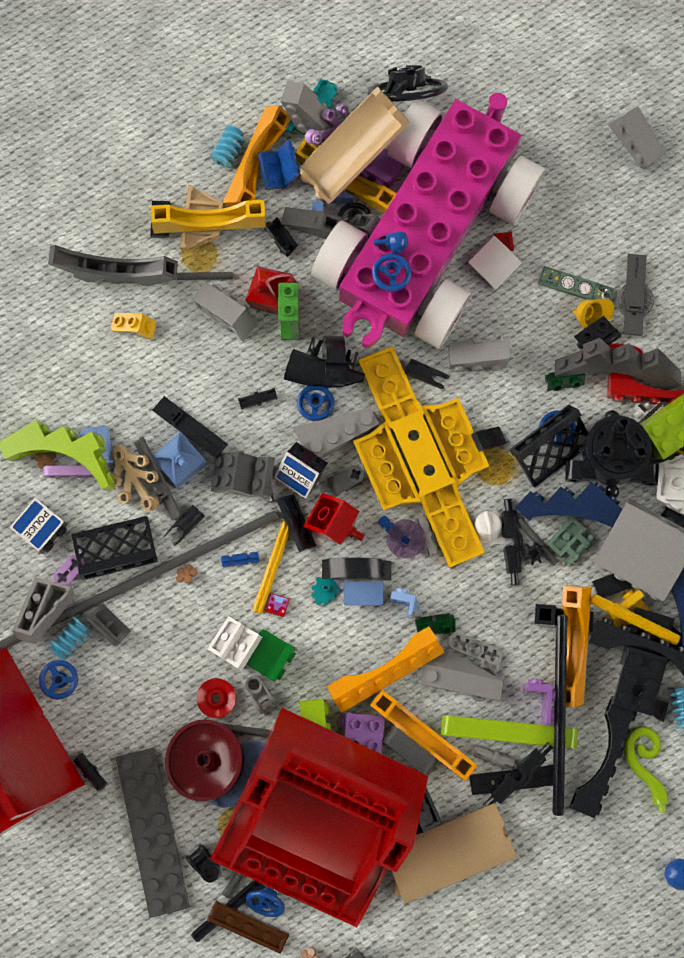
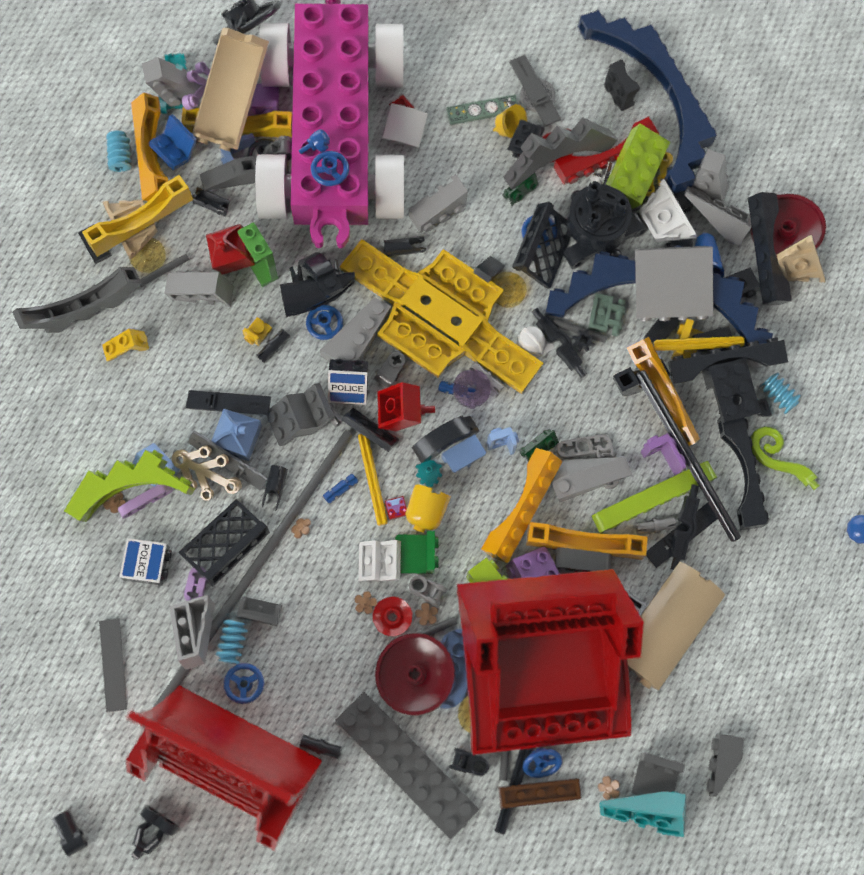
camera: 35 degrees left, 5 degrees down
(201, 671) = (364, 603): none -> medium nougat plant
(247, 713) = (426, 614): none -> medium nougat plant
(251, 378) = (256, 332): none -> yellow bracket
(301, 622) = (426, 508): none -> yellow cylinder

